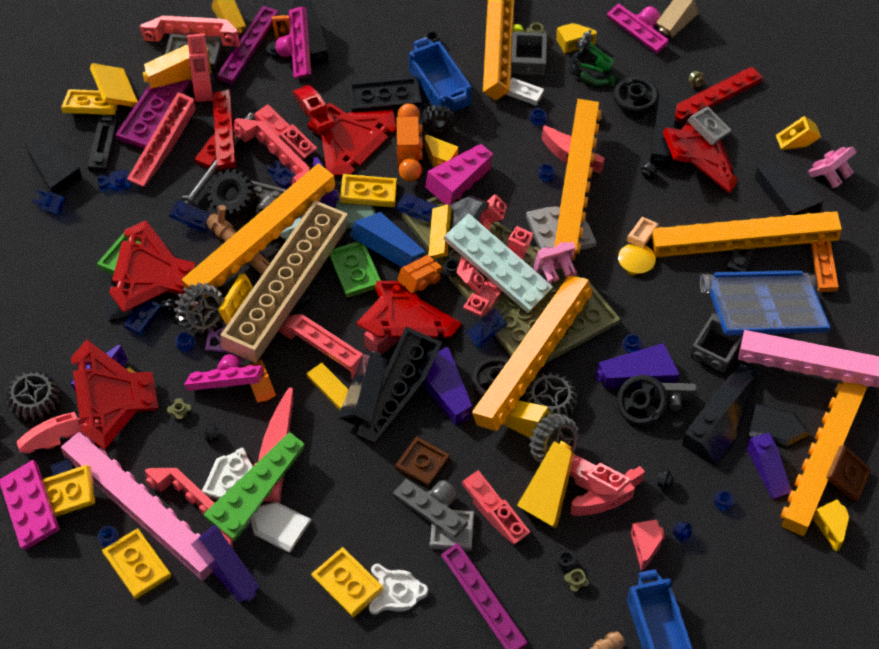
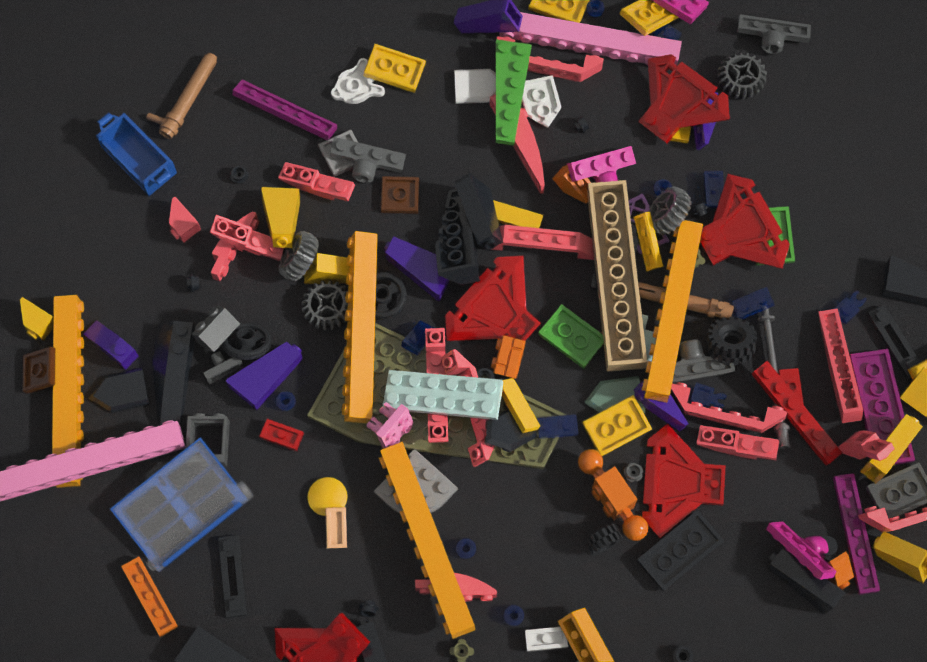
camera: 150 degrees right, 15 degrees up
(48, 433) = (701, 48): coral slope -> none
(50, 201) = (882, 249): clear blue plate -> none
(179, 414) = (621, 134): olive plate -> none
(314, 107) = (735, 484): red slope -> none
(379, 157) = (638, 472): none -> dark grey plate
(386, 239) = (562, 376): blue slope -> none
(439, 75) = (637, 597): blue container -> none
(439, 151) = (578, 506): yellow slope -> none
(458, 174) = (542, 476): dark pink wedge -> none
(576, 574) = (222, 159): olive plate -> none
(650, 318) = (281, 435): none -> red plate
(666, 416) = (215, 328): none -> slope
(682, 531) = (157, 246): clear blue plate -> none
(725, 495) = (137, 289): clear blue plate -> none
(746, 234) = (232, 576): light orange brick -> none

